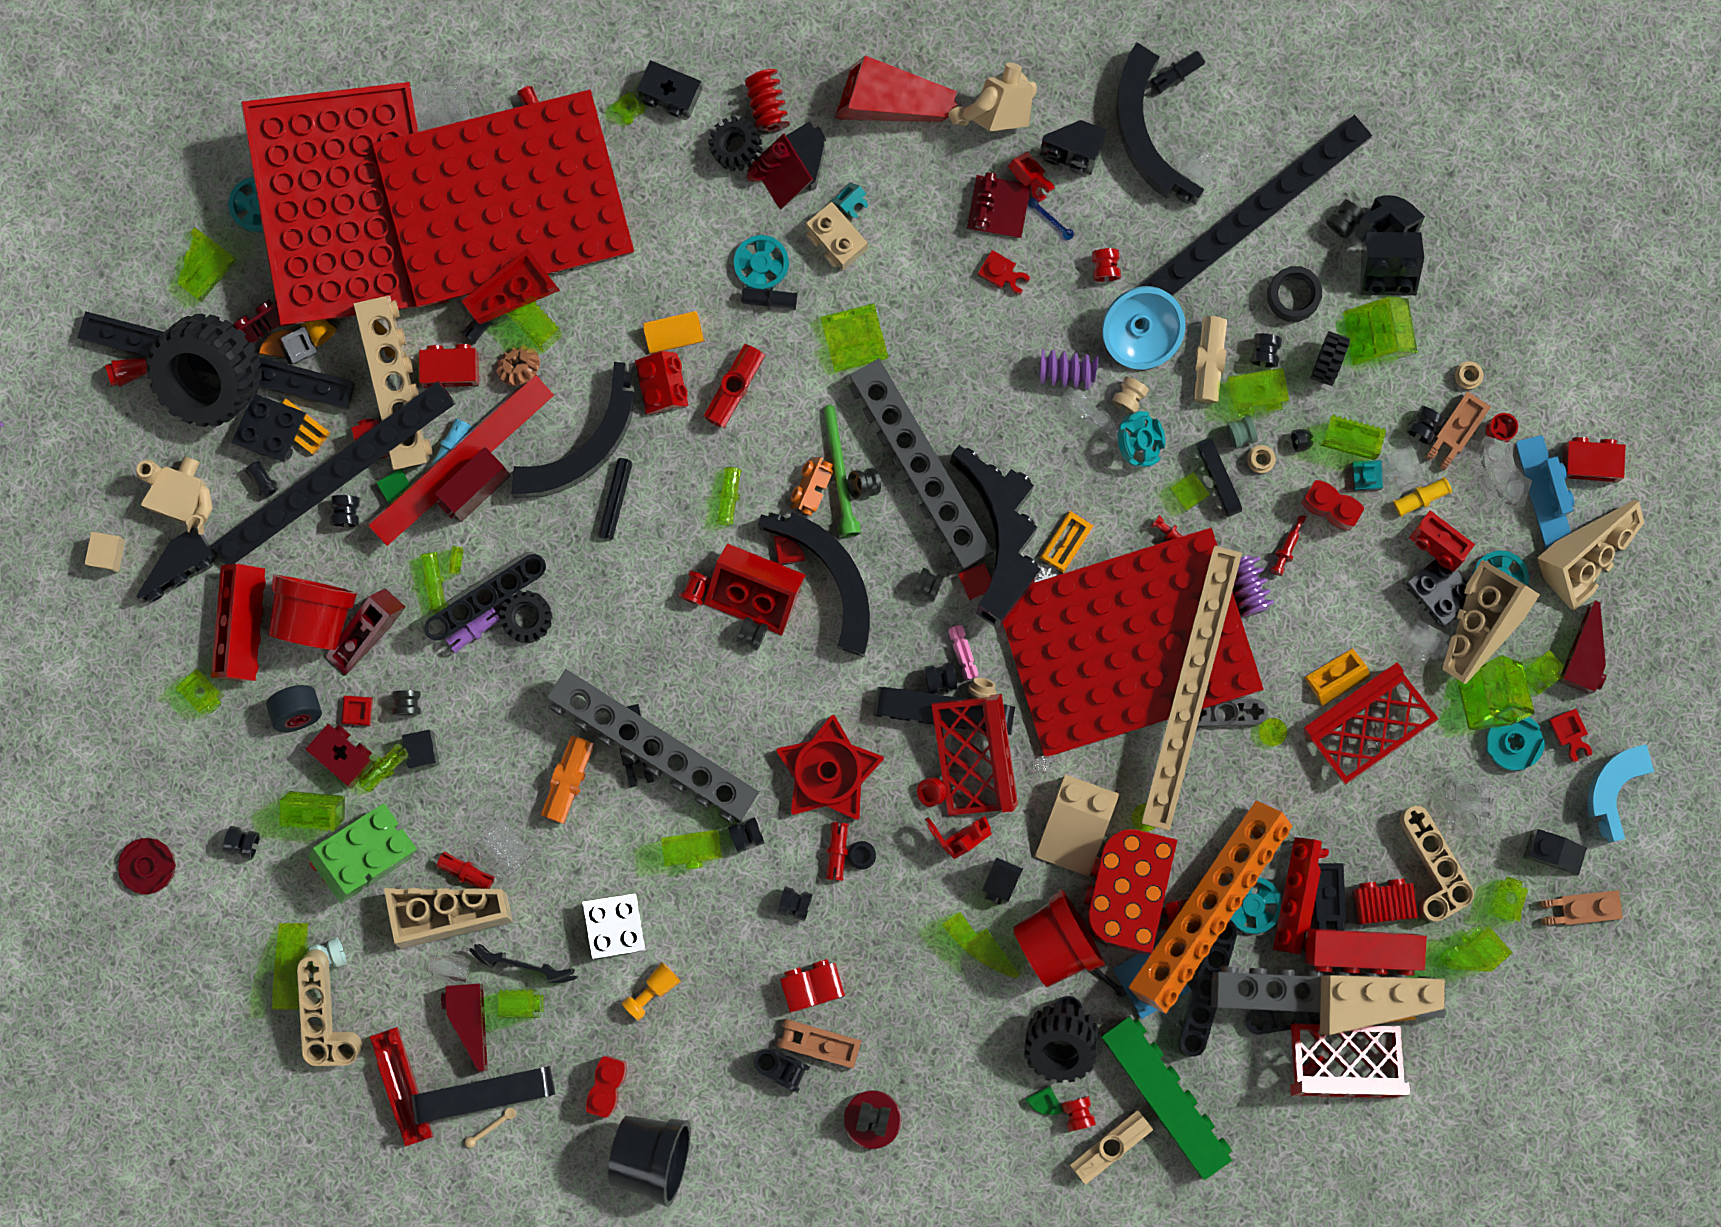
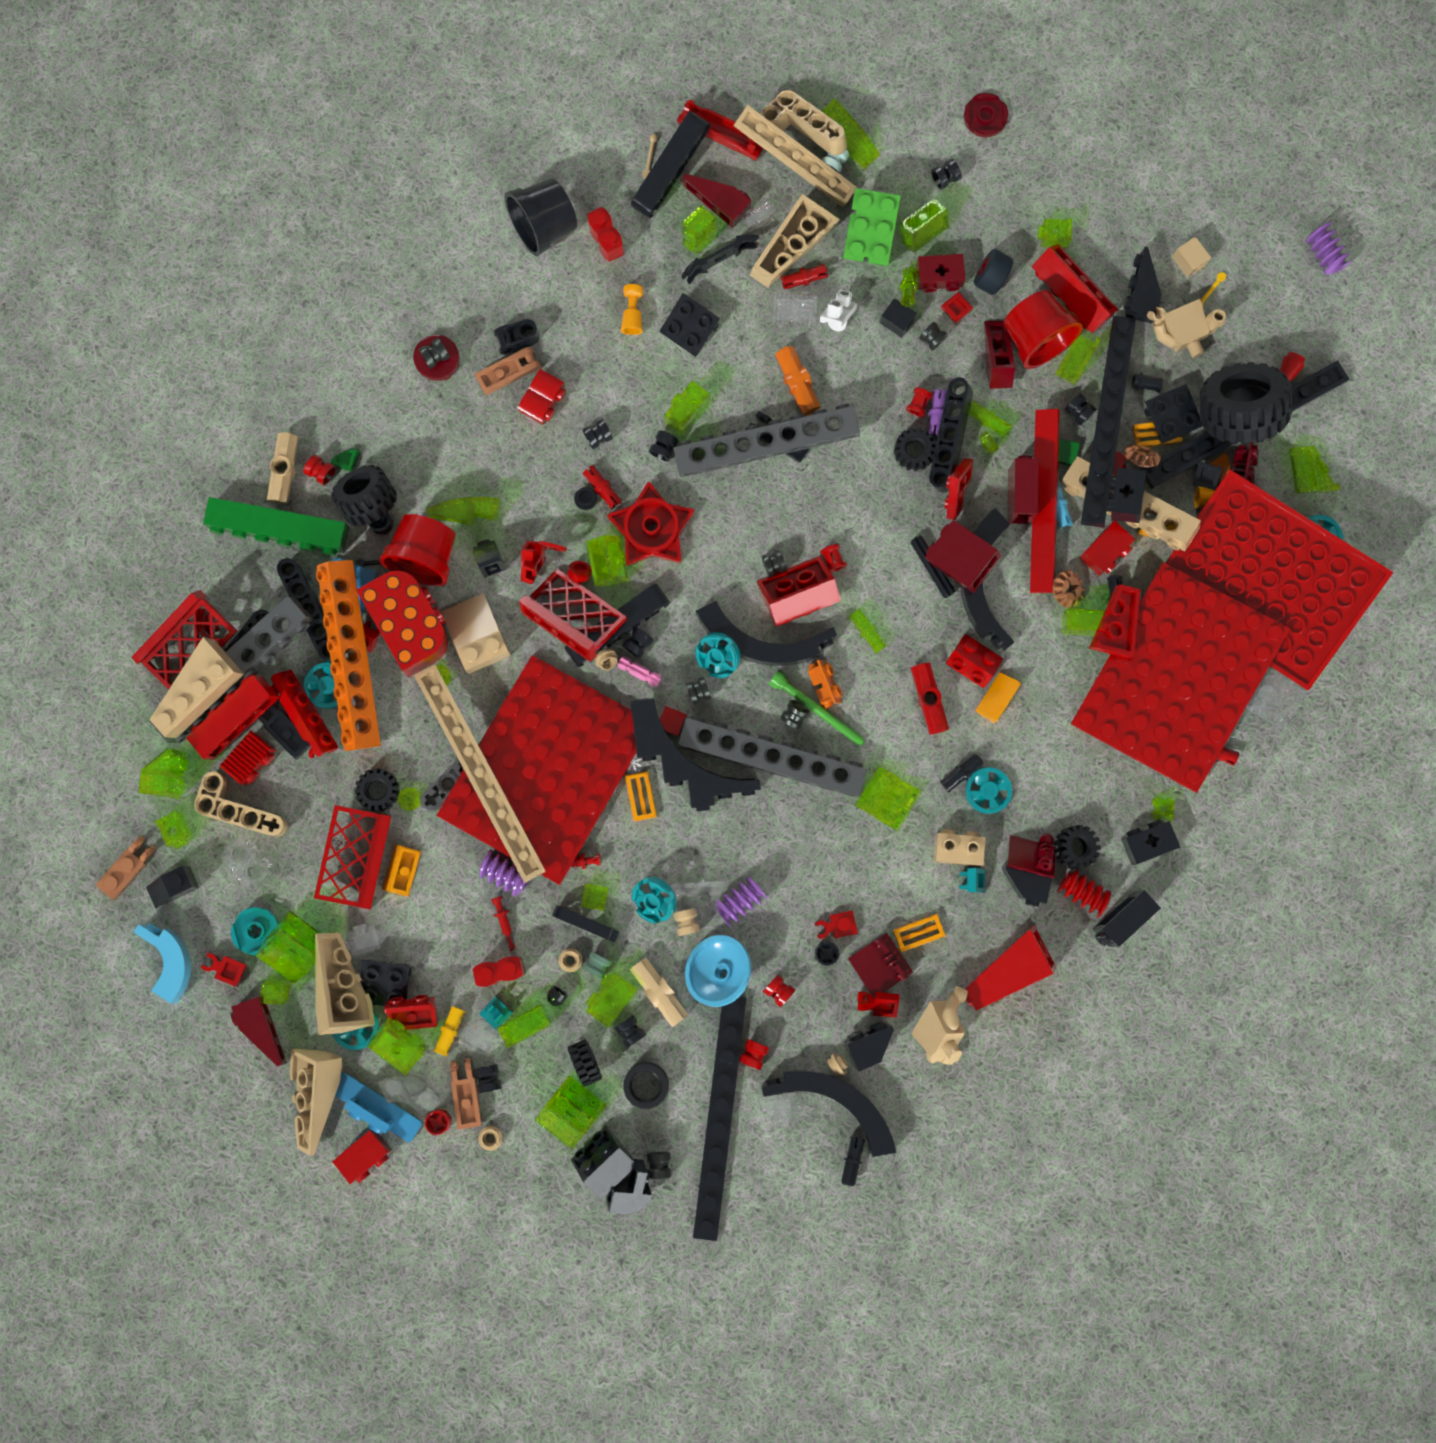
camera: 130 degrees right, 0 degrees up
(96, 511) = (1220, 278): none -> yellow hinge
(301, 558) = (1076, 359): none -> clear neon green panel
(337, 416) = (1142, 456): none -> nougat gear
(363, 989) = (795, 156): none -> tan plate
(375, 389) = (1130, 482): none -> black brick
(467, 806) = (839, 311): none -> white hips
(479, 655) = (919, 402): none -> red bush
(525, 544) = (956, 484): none -> red plate
(585, 475) = (962, 556): none -> dark red brick
(756, 45) = (1126, 919): none -> black window
(787, 551) = (800, 632): red tile -> none
(881, 597) = (718, 655): none -> teal piece
(898, 774) = (607, 561): none -> clear neon green brick
(936, 212) = (938, 925): none -> light orange tile
(1038, 253) = (829, 951): none -> black wheel
(1067, 233) = (822, 989): clear blue hinge -> none
(1115, 159) = (837, 1064): none -> tan plate
(1178, 233) = (754, 1054): none -> red wheel
(1311, 761) = (363, 790): none -> black tyre
(1479, 523) = (397, 1045): none -> clear neon green brick

